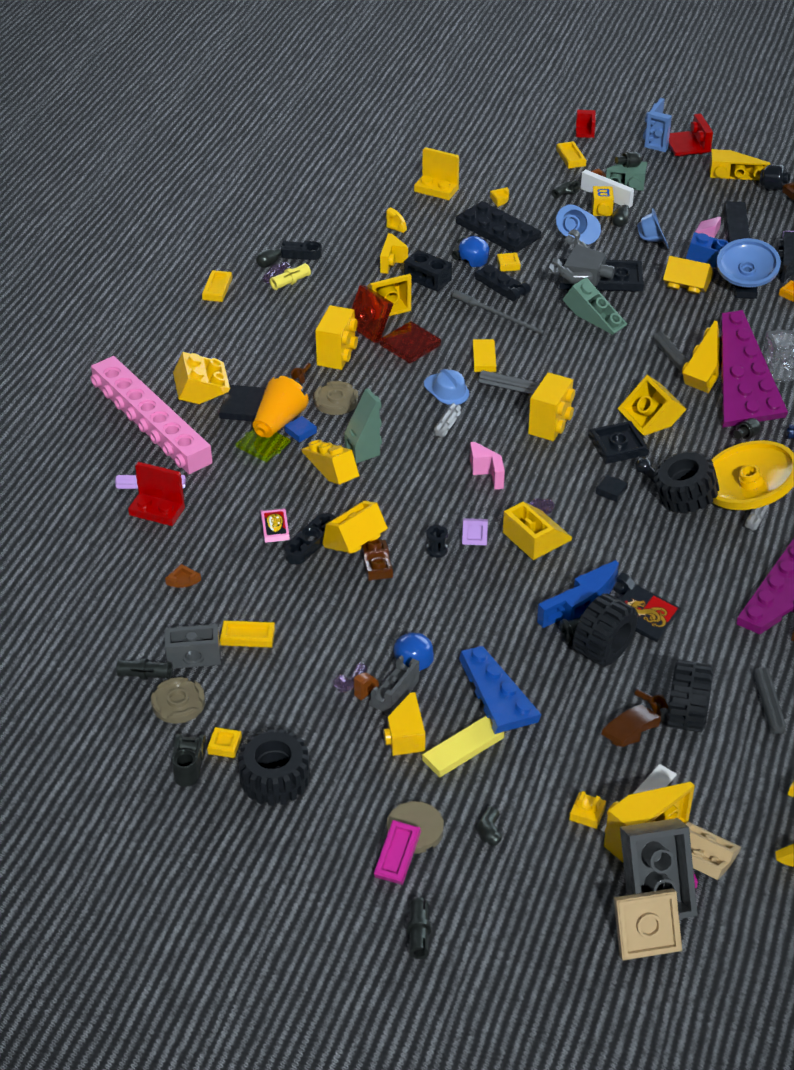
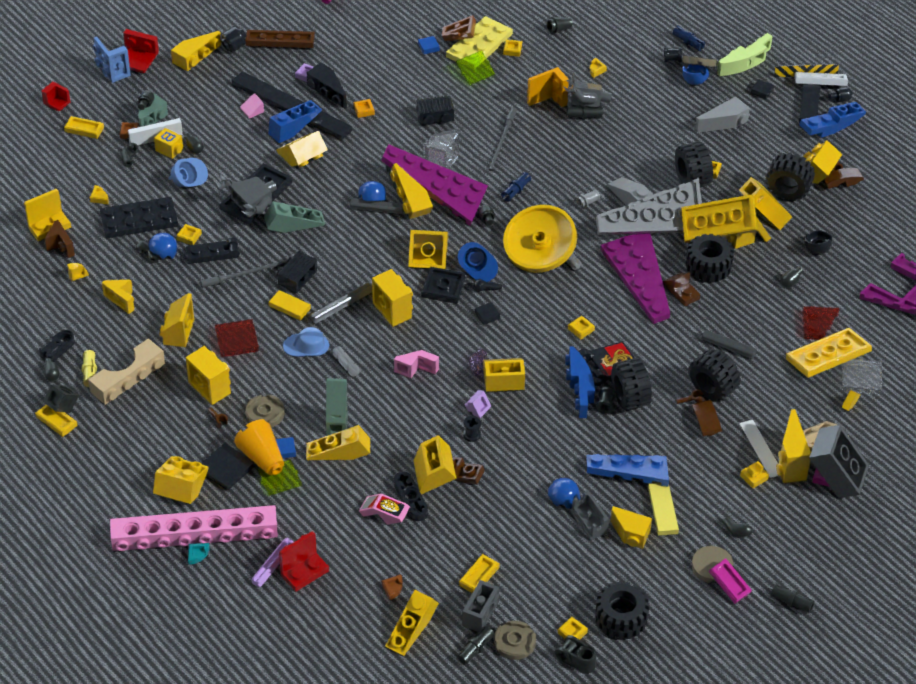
camera: 60 degrees left, 5 degrees up
(127, 431) = (197, 552): none -> teal tile
(146, 606) = (412, 622): none -> yellow slope
(234, 272) = (60, 398): none -> pearl dark grey brick
(275, 270) = (73, 374): clear purple arm -> none
(279, 294) = (109, 384): none -> tan arch
(345, 684) = (568, 536): clear purple arm -> none
(364, 684) = (578, 532): dark orange tile -> none
(371, 313) = (193, 337): clear red tile -> none
(421, 195) = (59, 238): none -> reddish brown slope
(428, 270) = (162, 284): black brick -> none
(527, 339) = (297, 271): none -> black brick
(648, 924) = (863, 489): tan tile -> none
(650, 229) = (234, 137): medium blue piece -> none
(666, 566) = (581, 327): none -> yellow tile
(667, 441) = (477, 261): none -> blue piece
(683, 338) = (372, 191): none -> blue hair
(686, 482) = (521, 259): black tyre -> none
(748, 262) = (331, 111): medium blue dish -> none

